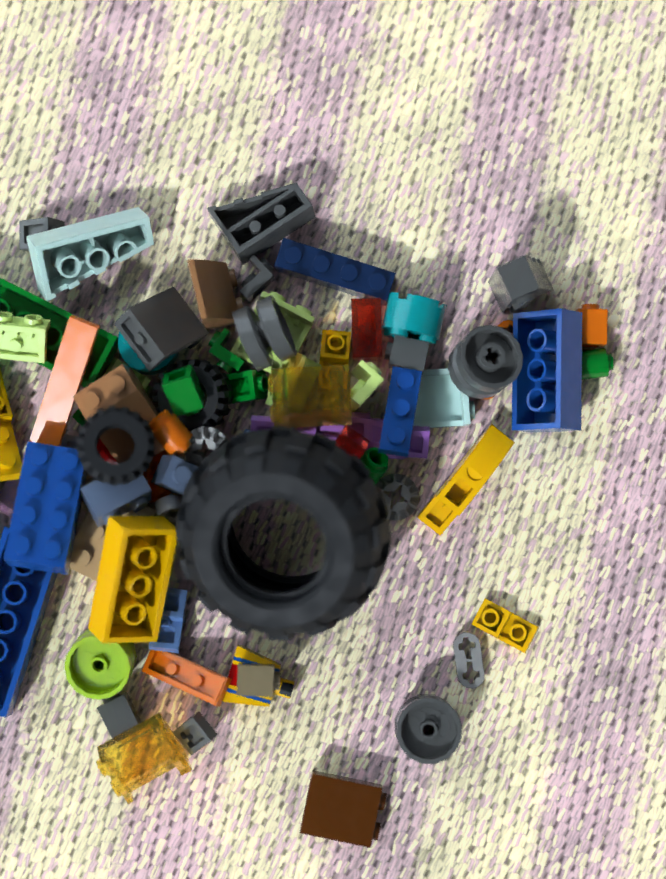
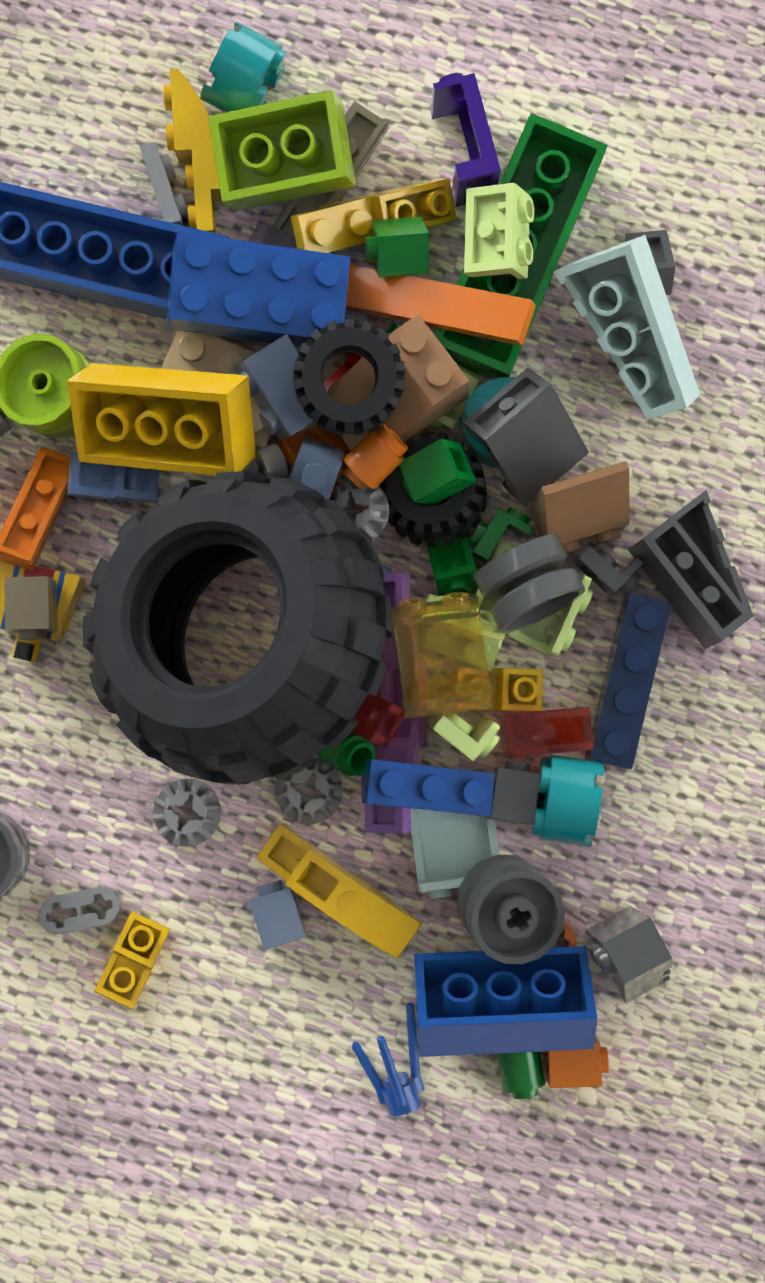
camera: 90 degrees right, 0 degrees up
(20, 408) = (398, 247): none -> green brick
(410, 595) = (204, 803): none -> light grey gear
(479, 523) = (277, 915): none -> sand blue brick
(603, 446) = (399, 1090): none -> blue plant

